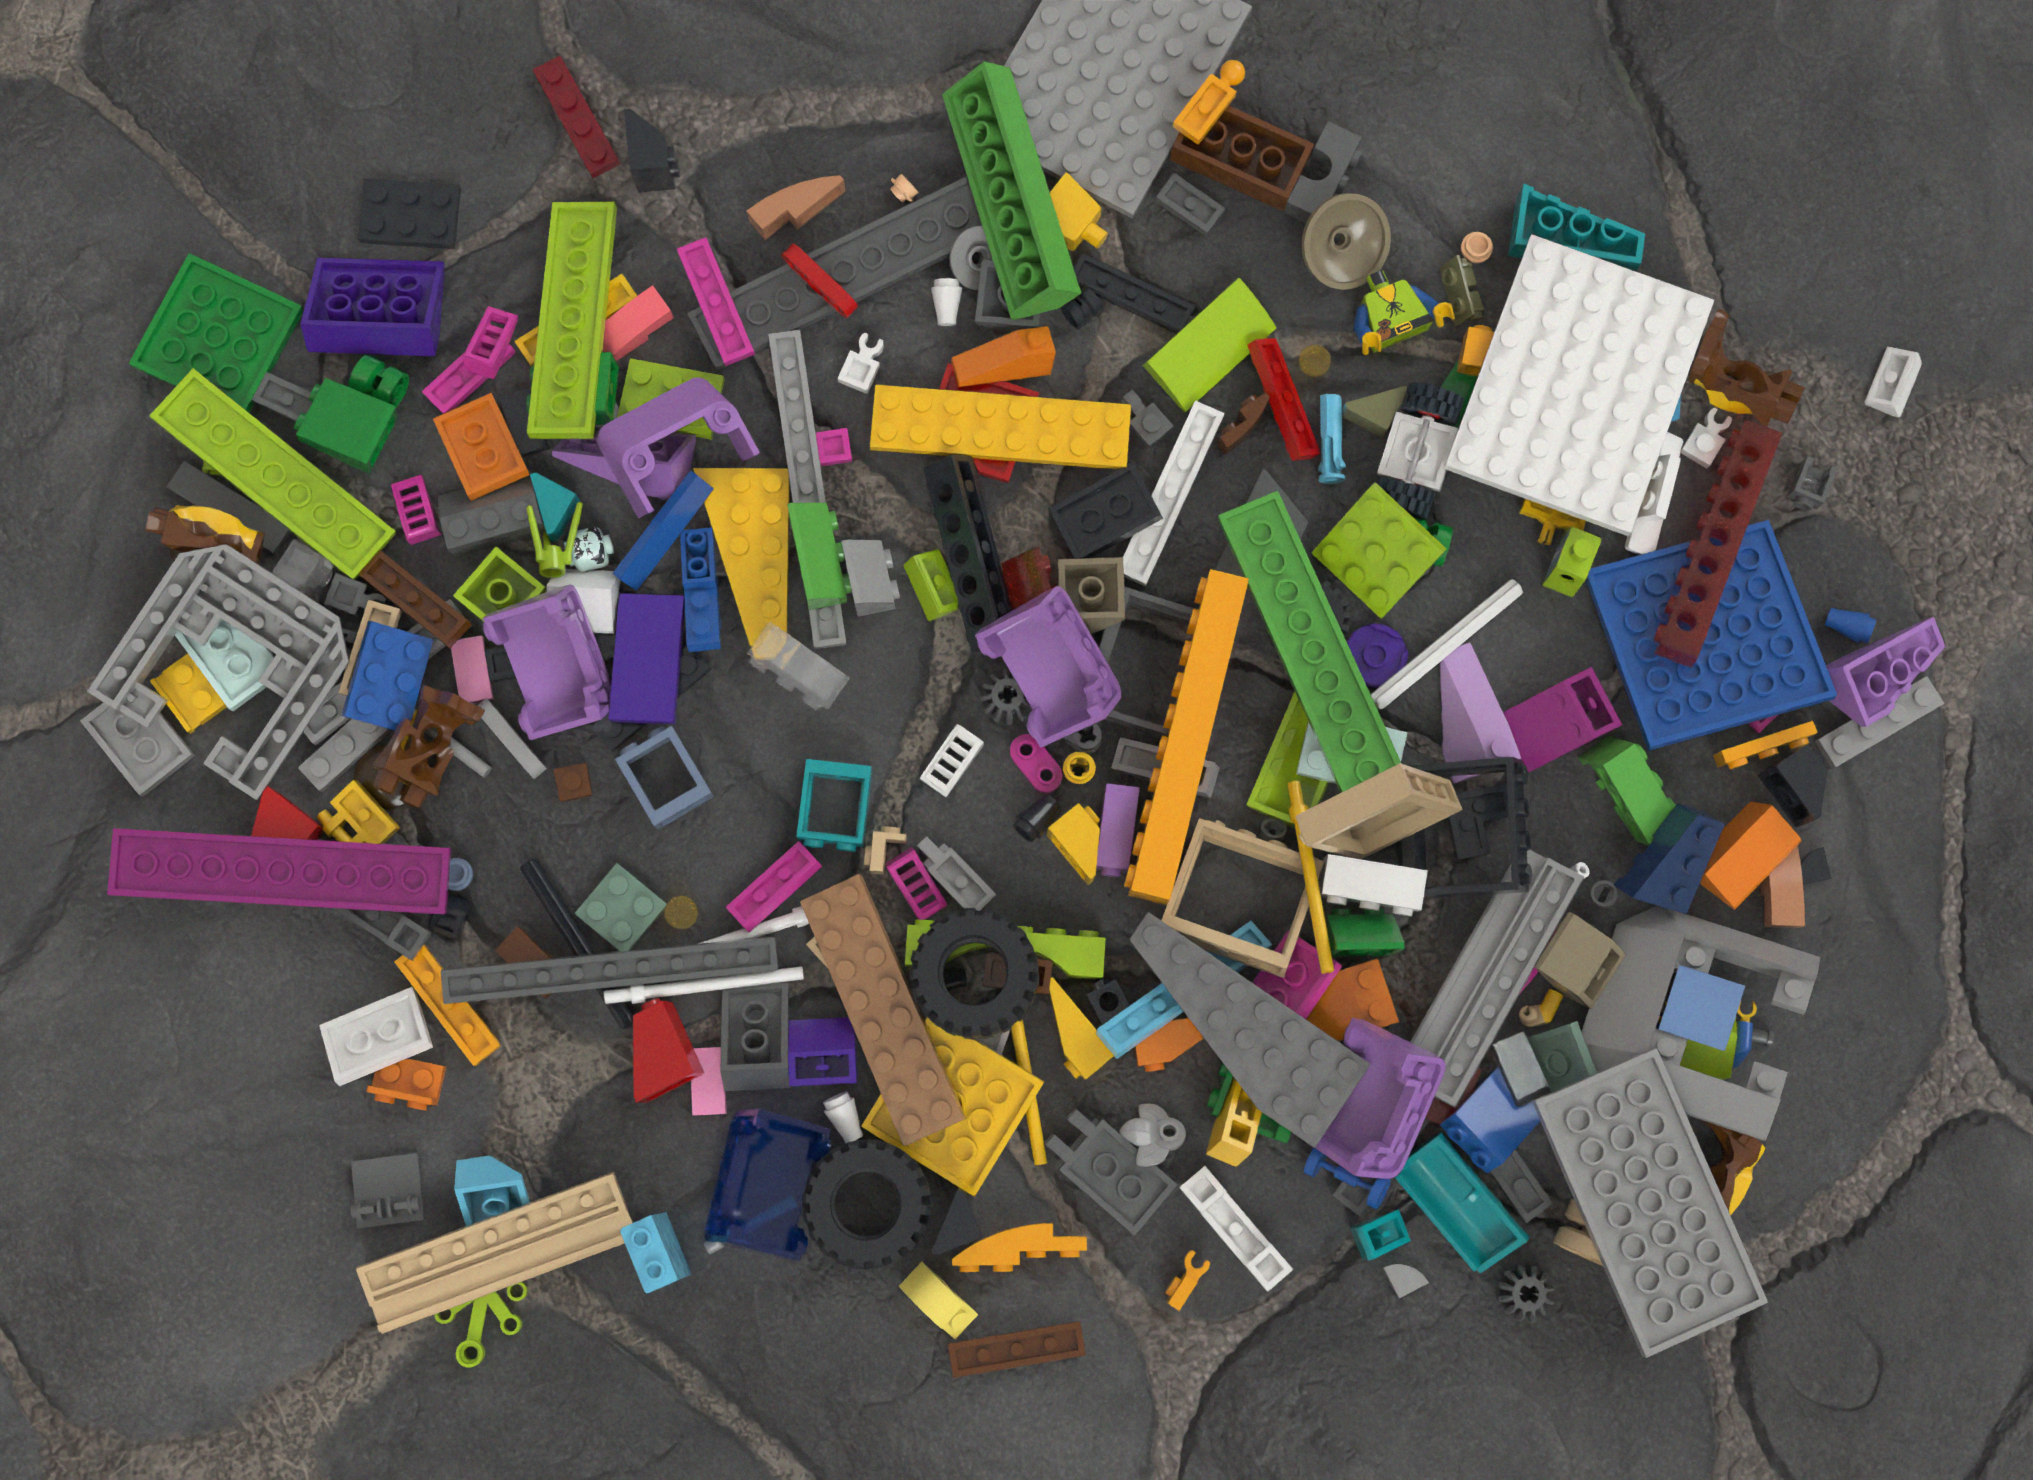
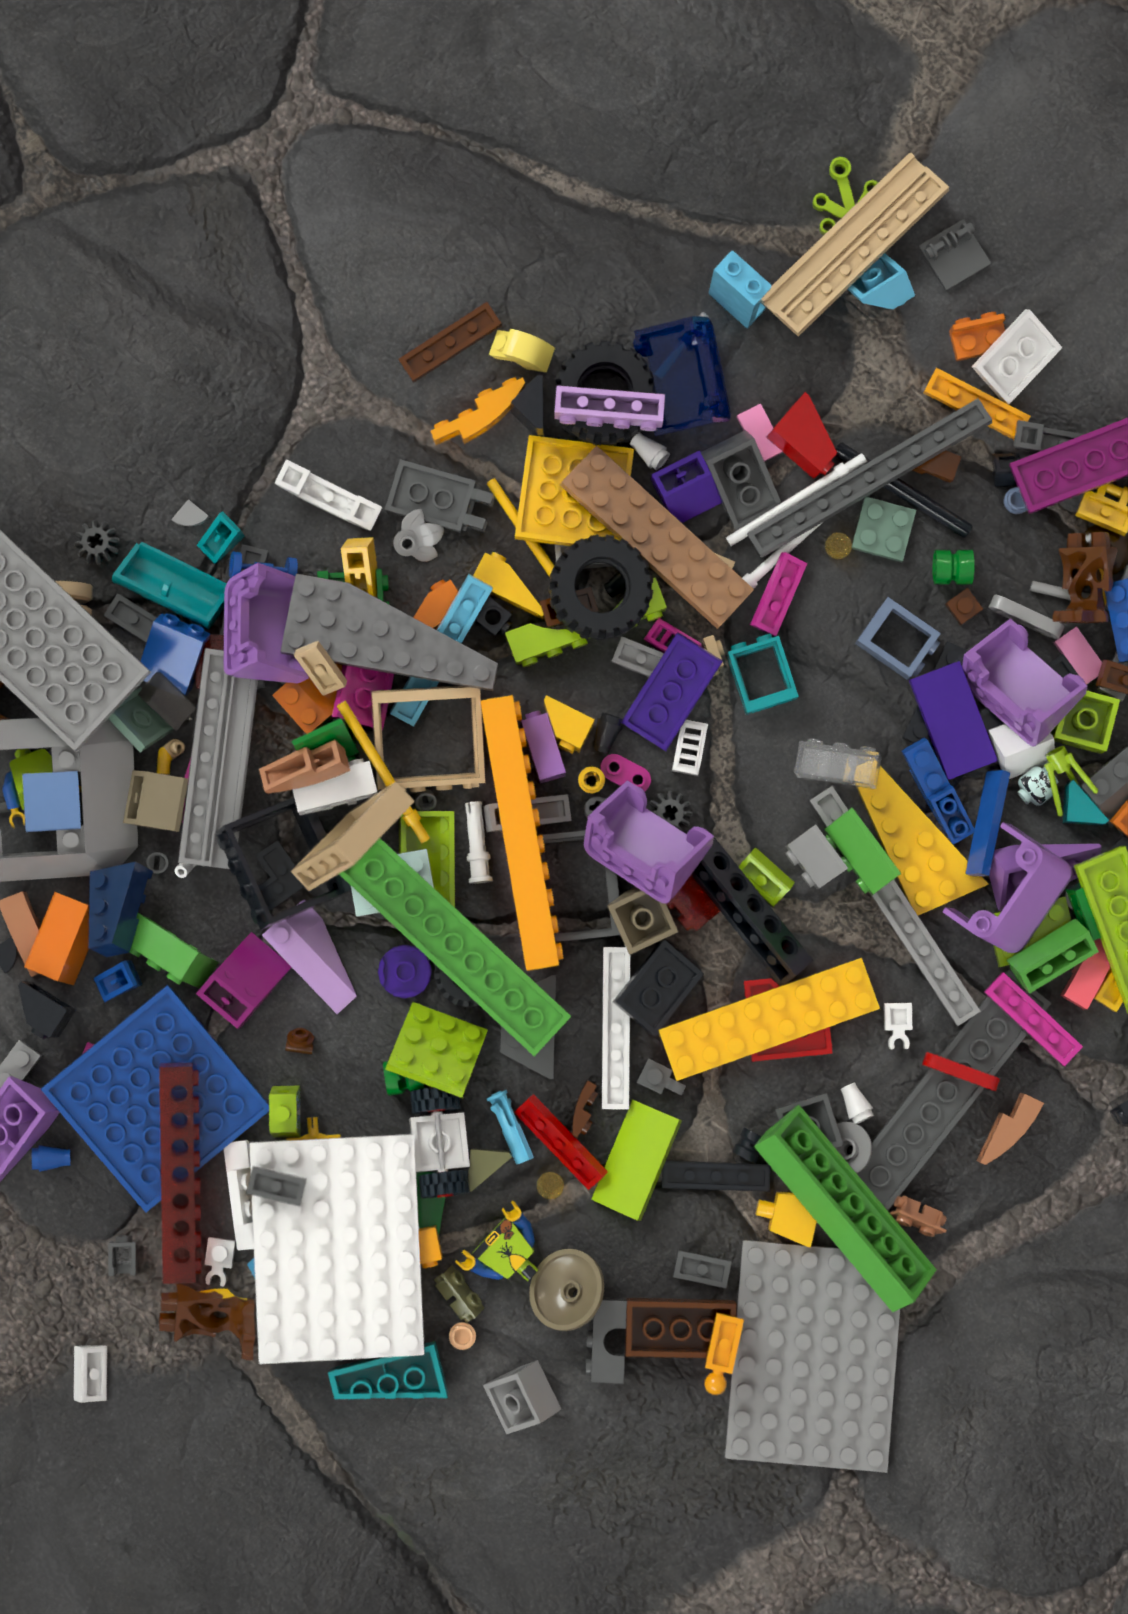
camera: 155 degrees right, 5 degrees up
(561, 827) = (953, 567): none -> green wheel
(662, 355) = (1052, 955): none -> bright green brick
(833, 447) = (889, 948): dark pink plate -> none
(870, 1176) = (610, 407): none -> lavender brick
(903, 188) = (931, 1180): light nougat plate -> none
(944, 828) = (671, 691): none -> dark purple tile
(945, 163) = (927, 1221): none -> nougat hinge
(1009, 357) = (789, 1075): orange slope -> none
(1181, 1288) = (349, 436): light orange plate -> none
(1240, 744) = (478, 856): none -> white pin
(1333, 1023) = (320, 668): none -> tan plate
(1399, 914) = (305, 768): none -> nougat slope
(1439, 156) = (522, 1397): none -> light grey slope
(1446, 644) = (354, 1003): white axle -> none
(1522, 630) = (300, 1041): none -> reddish brown plate
(1621, 470) = (276, 1185): none -> dark grey plate
(1698, 783) = (118, 980): none -> blue slope
(1765, 746) = (78, 1032): light orange plate -> none

